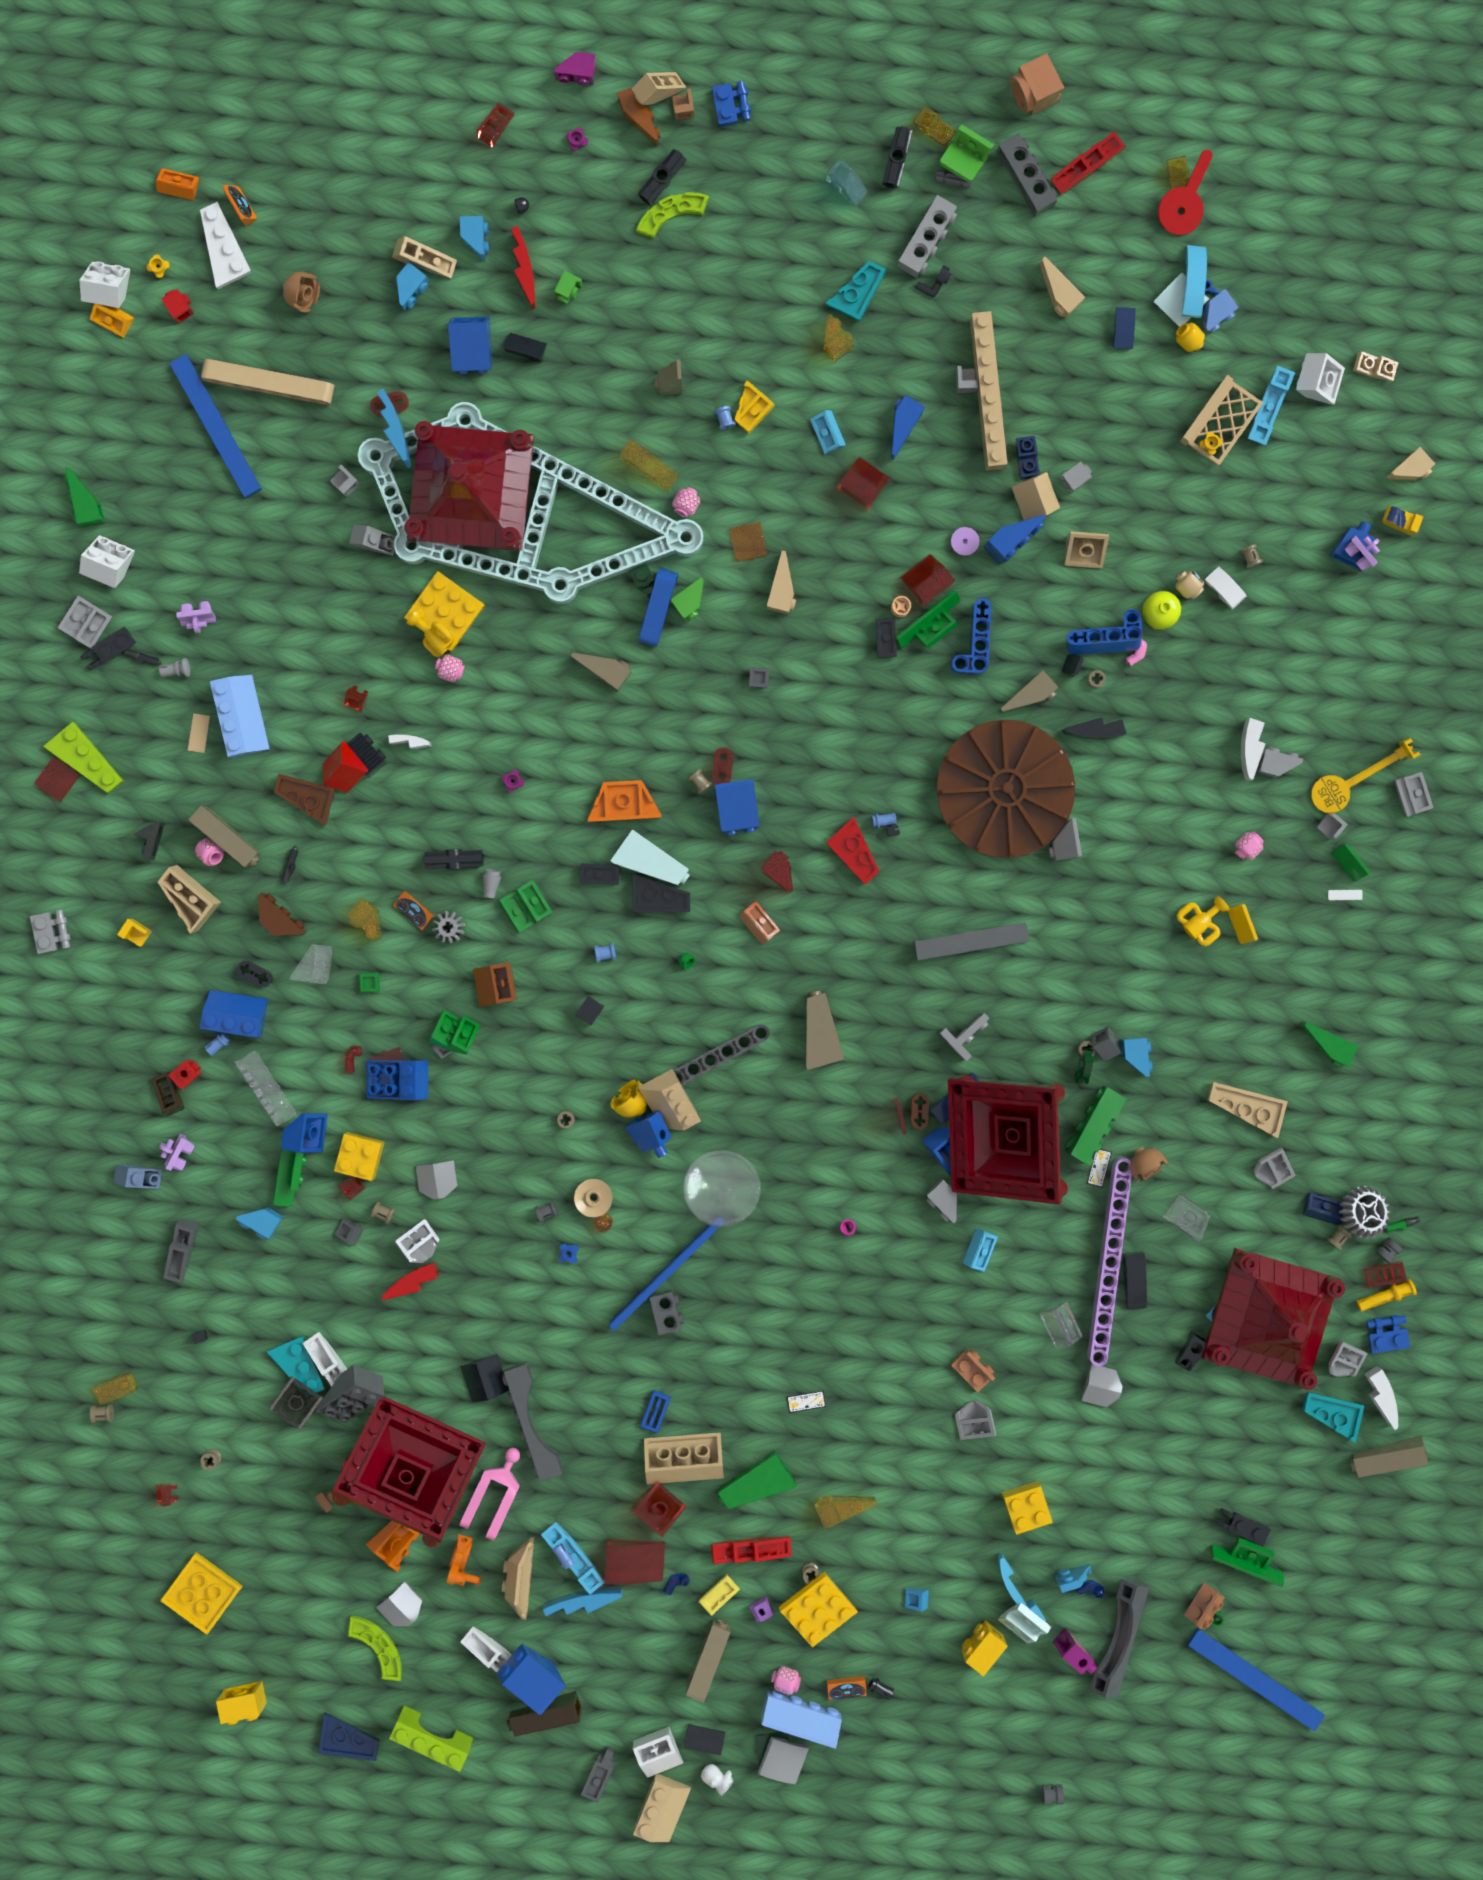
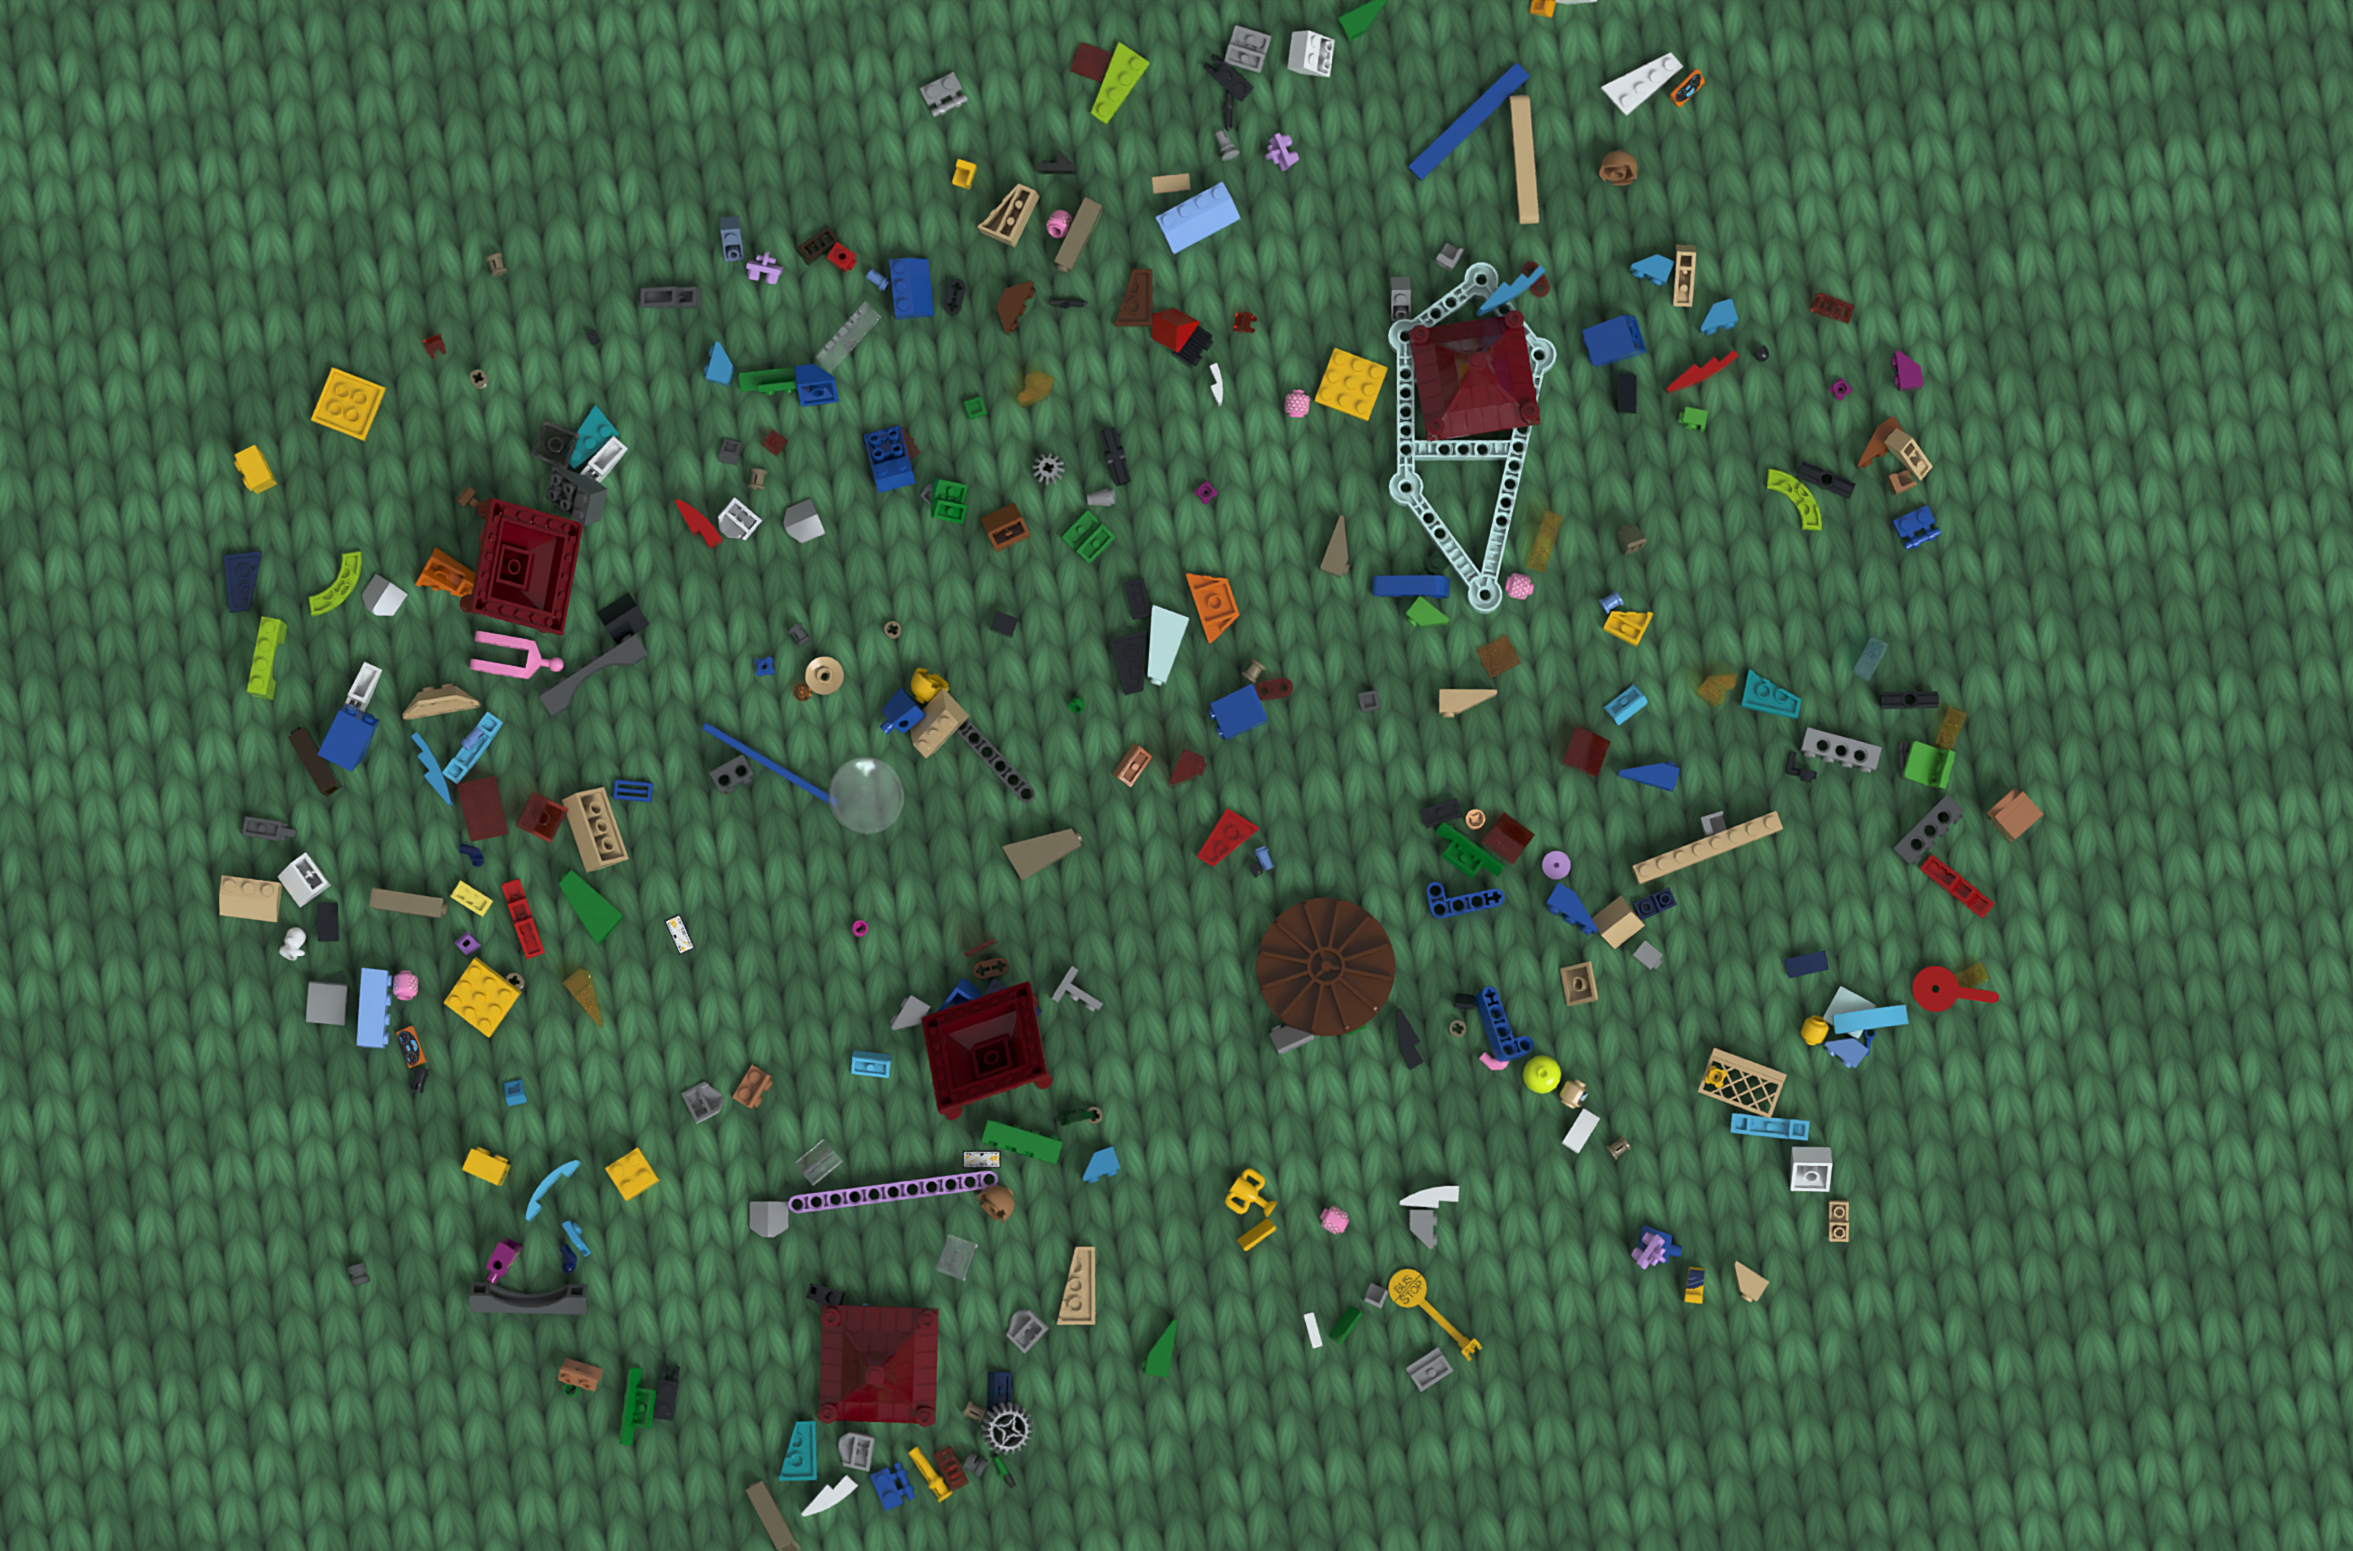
camera: 80 degrees right, 5 degrees down
(115, 1388) = (524, 271): clear yellow slope -> none
(152, 266) = (1606, 22): yellow plate -> none
(177, 184) = (1690, 24): orange slope -> none
(178, 305) = (1573, 56): red brick -> none
(314, 965) = (977, 351): clear wing -> none
(350, 1056) = (898, 408): clear red arm -> none
(359, 1156) = (806, 442): yellow brick -> none
(413, 910) = (1055, 431): slope -> none
(436, 639) = (1322, 383): yellow piece -> none
(459, 1561) = (442, 640): orange piece -> none
(605, 952) = (1063, 624): medium blue bush -> none
(971, 941) = (1169, 974): dark grey slope -> none
(1024, 1623) = (519, 1201): light aqua slope -> none
(1034, 692) = (1427, 970): dark tan slope -> none
(1062, 292) = (1822, 895): tan slope -> none
(1106, 1044) = (1104, 1132): dark grey panel -> none
(1135, 1280) = (880, 1222): black slope -> none
(1256, 1679) = (520, 1446): blue tile -> none

